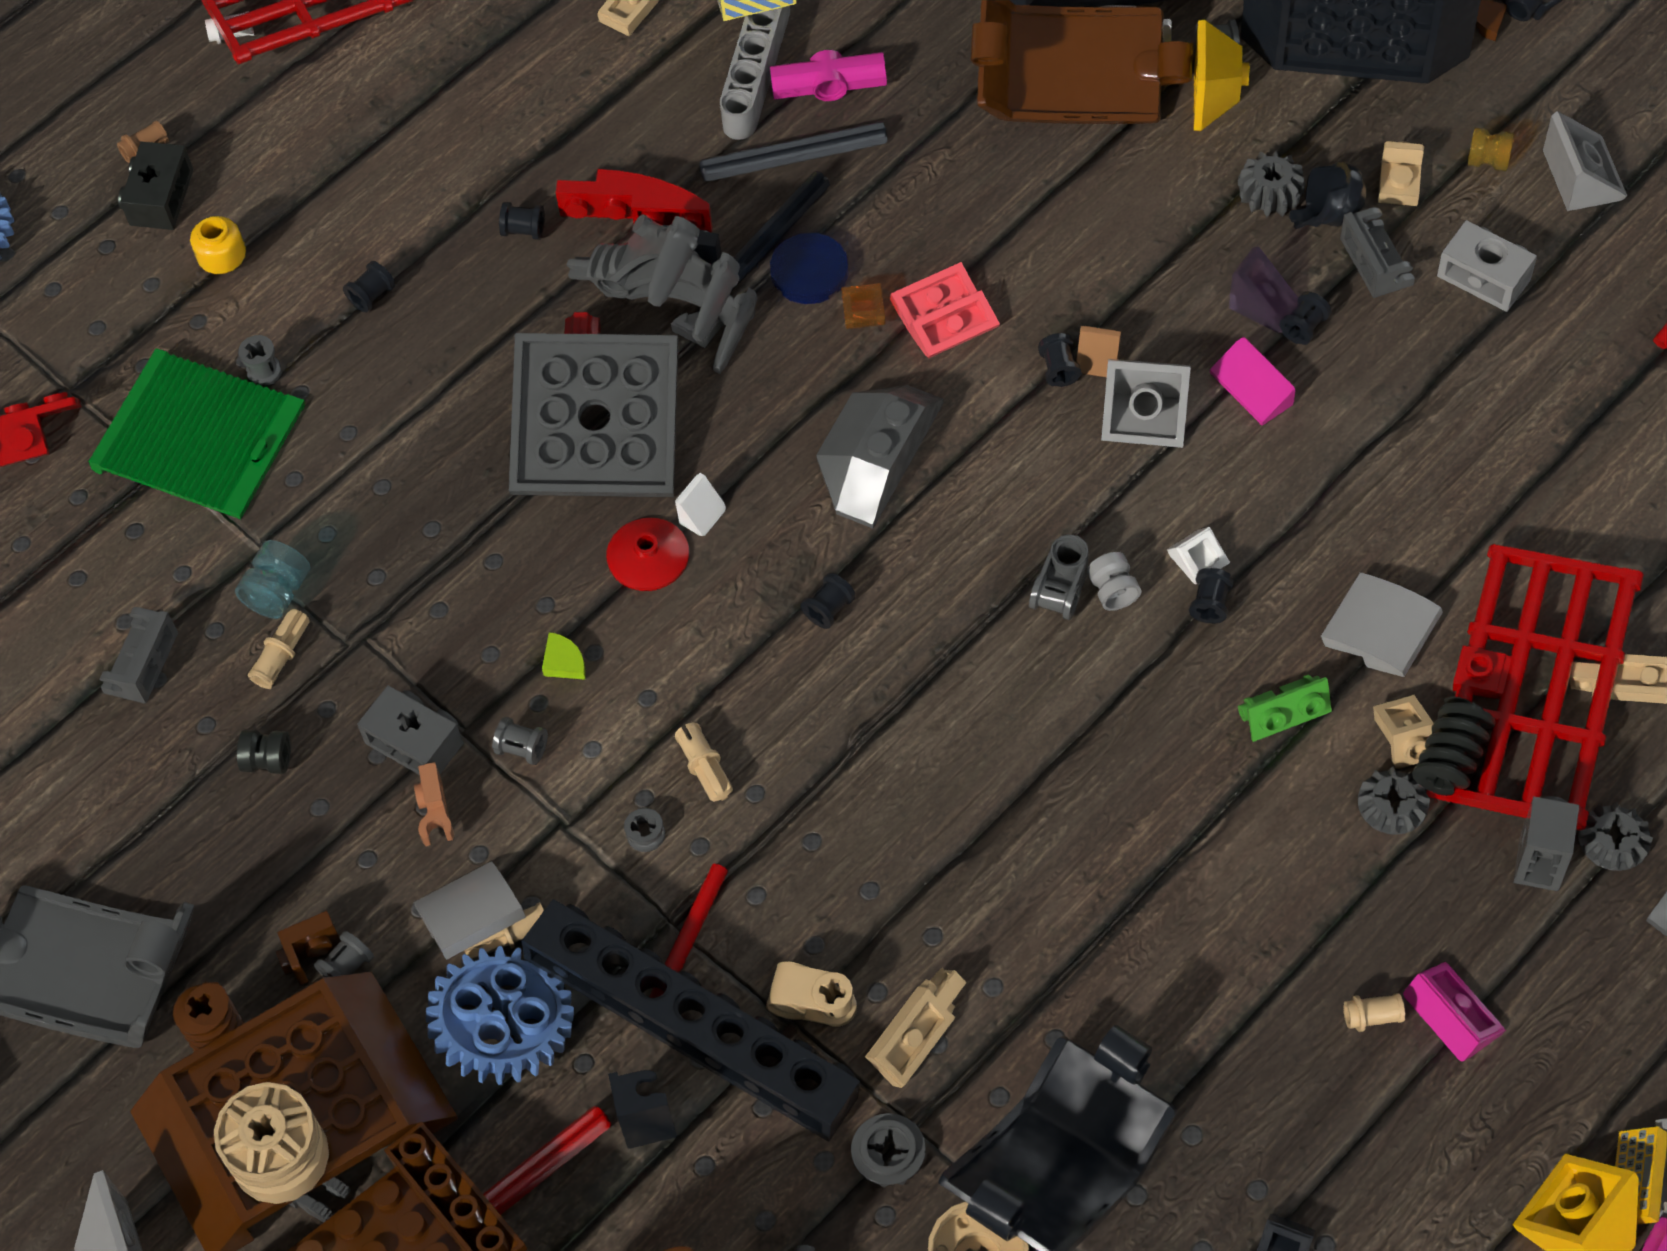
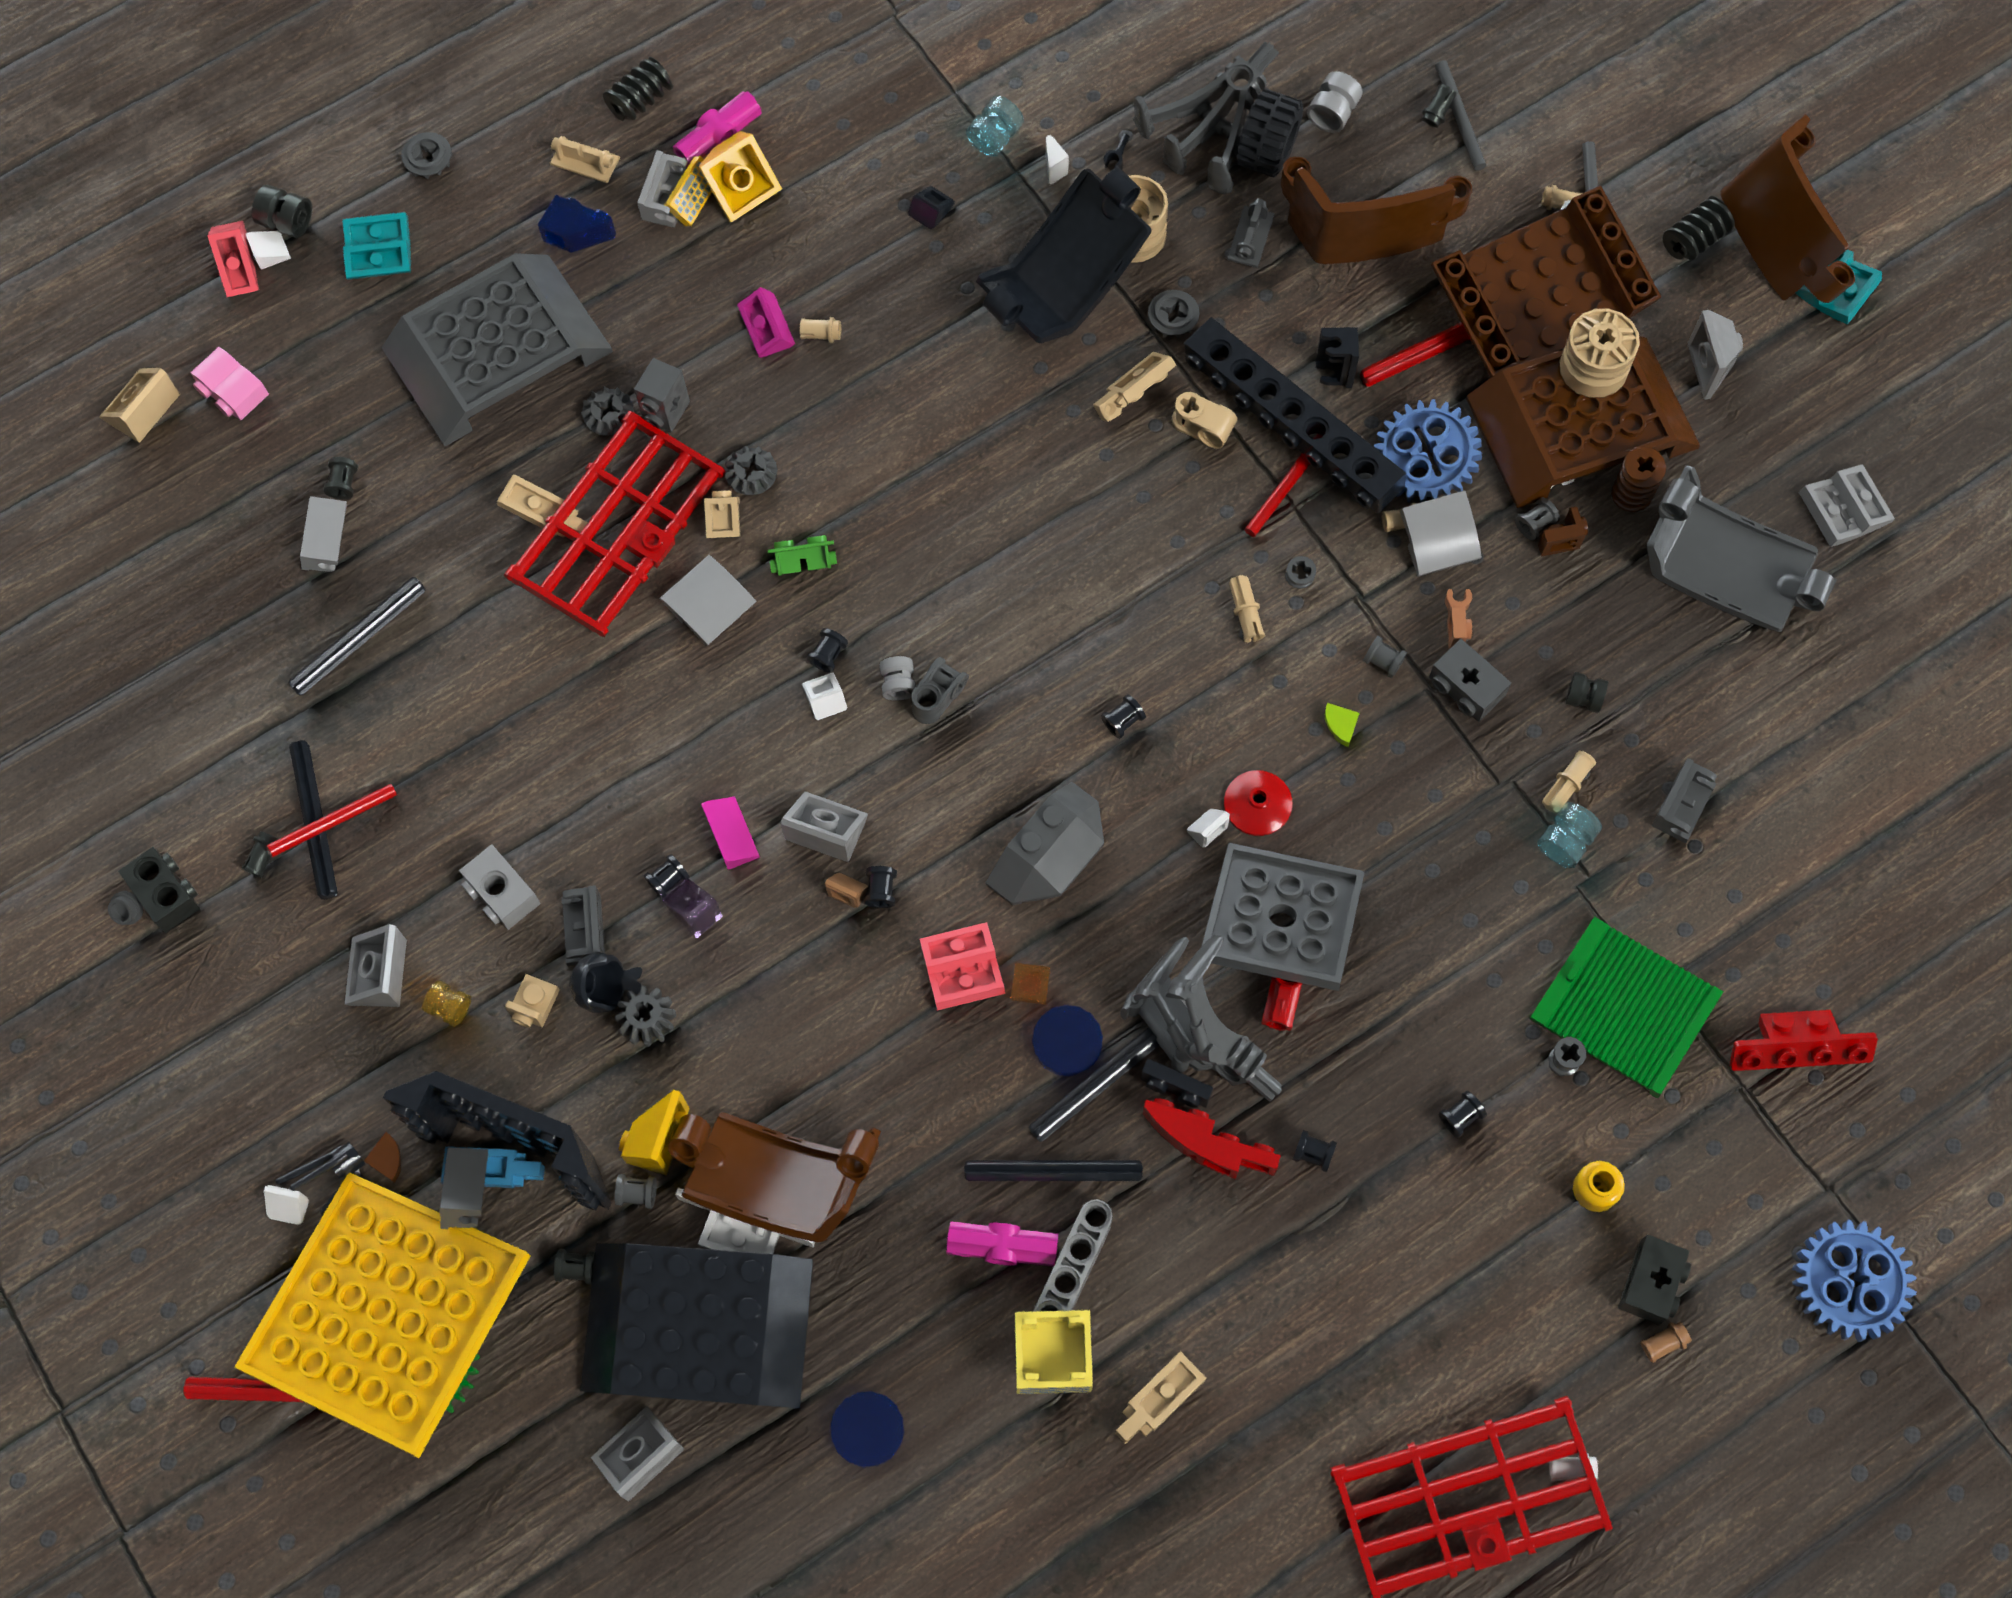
camera: 170 degrees left, 10 degrees up
(1453, 746) = (694, 474): pearl dark grey piece -> none

